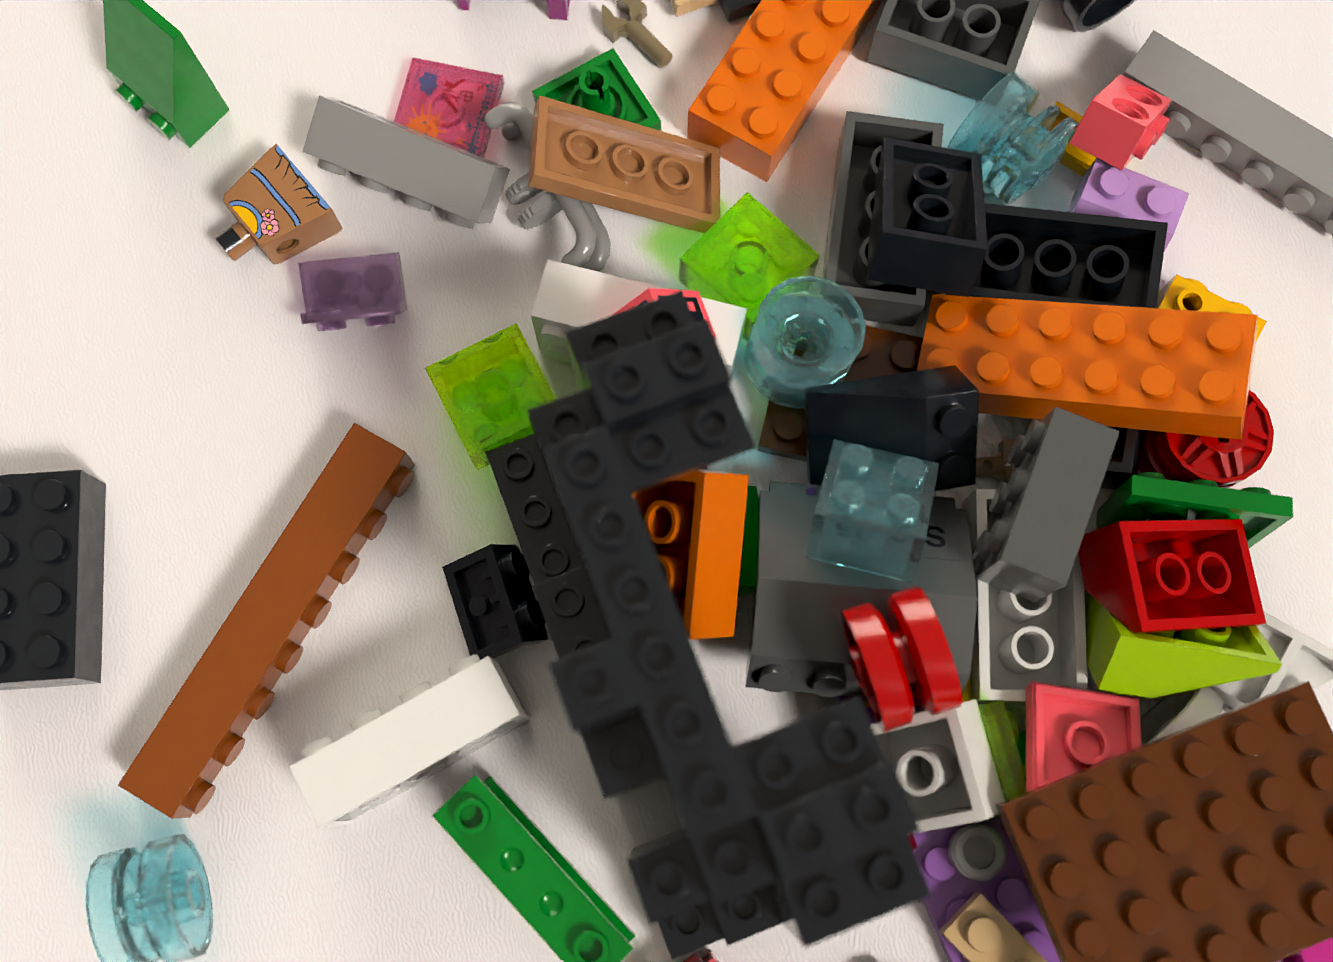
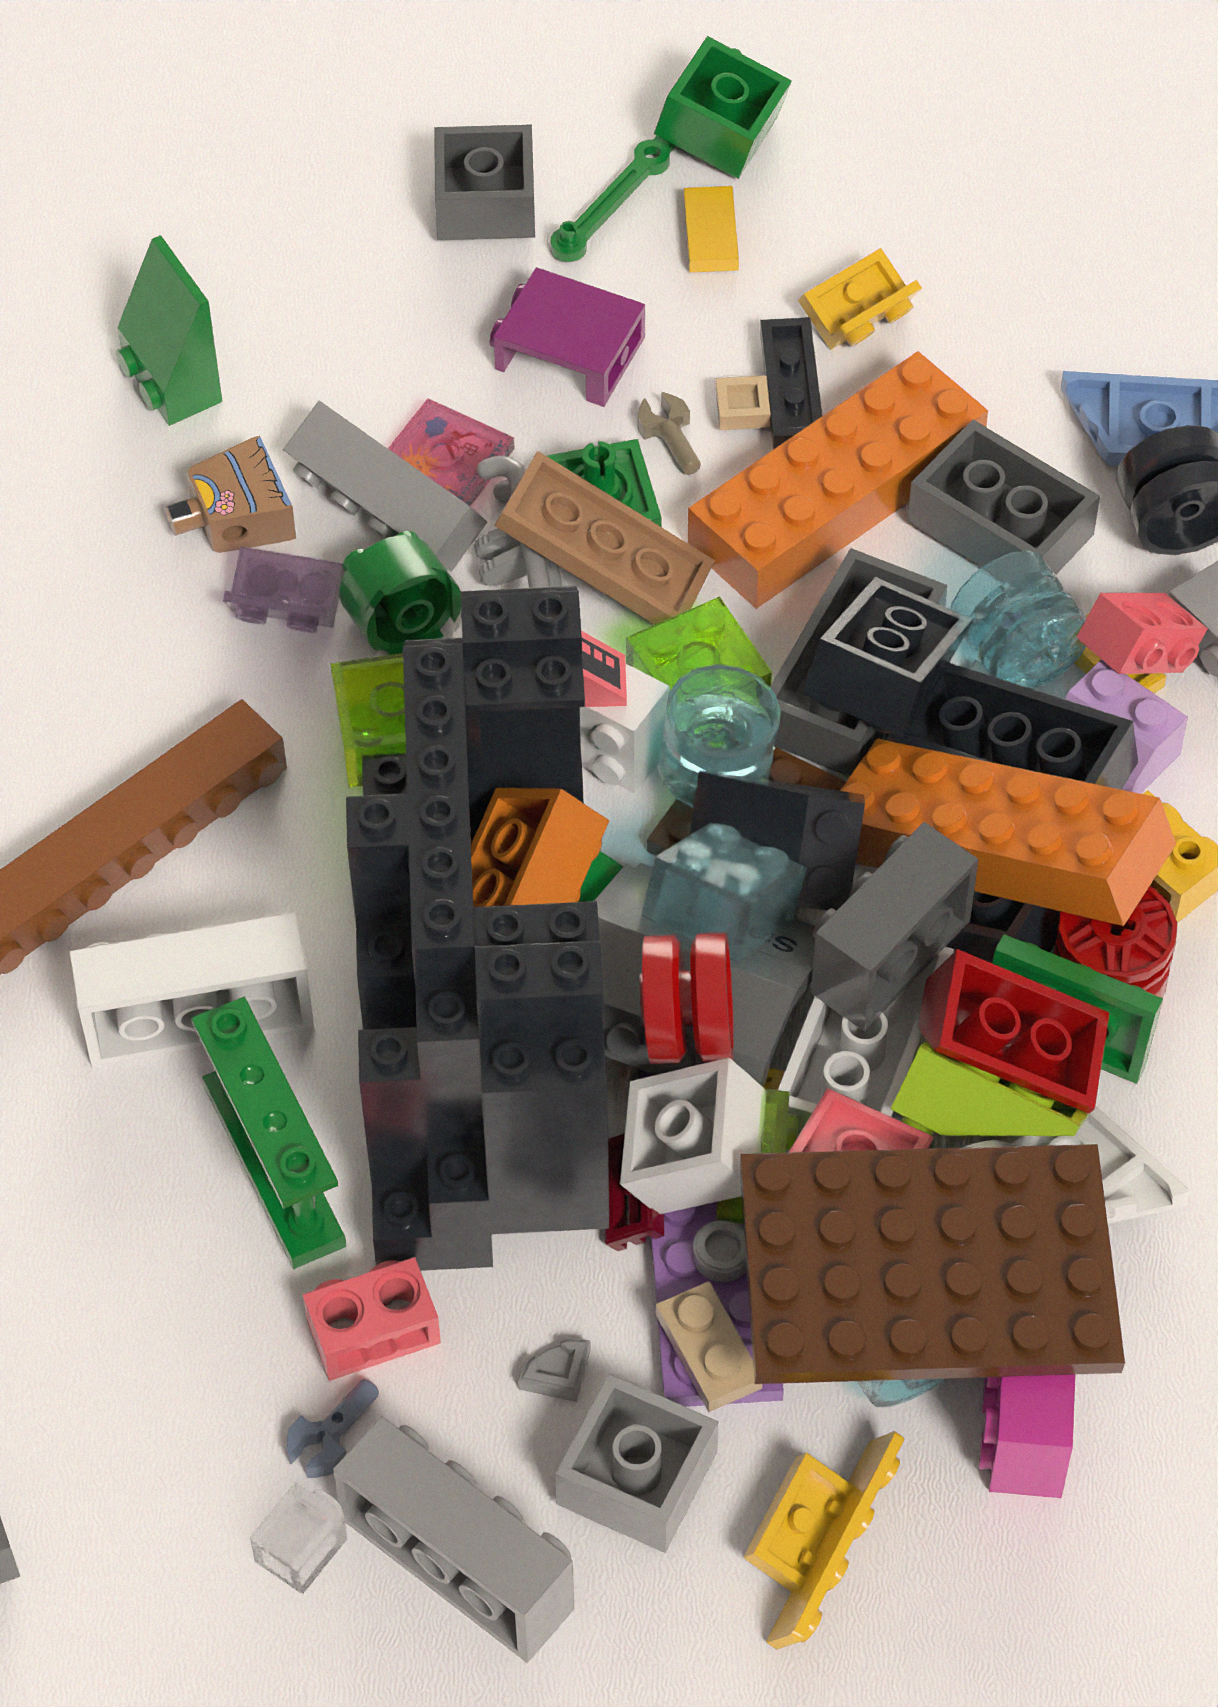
camera: 20 degrees right, 20 degrees down
(458, 269) = (398, 592): none -> green brick
(495, 601) = (320, 892): black bracket -> none

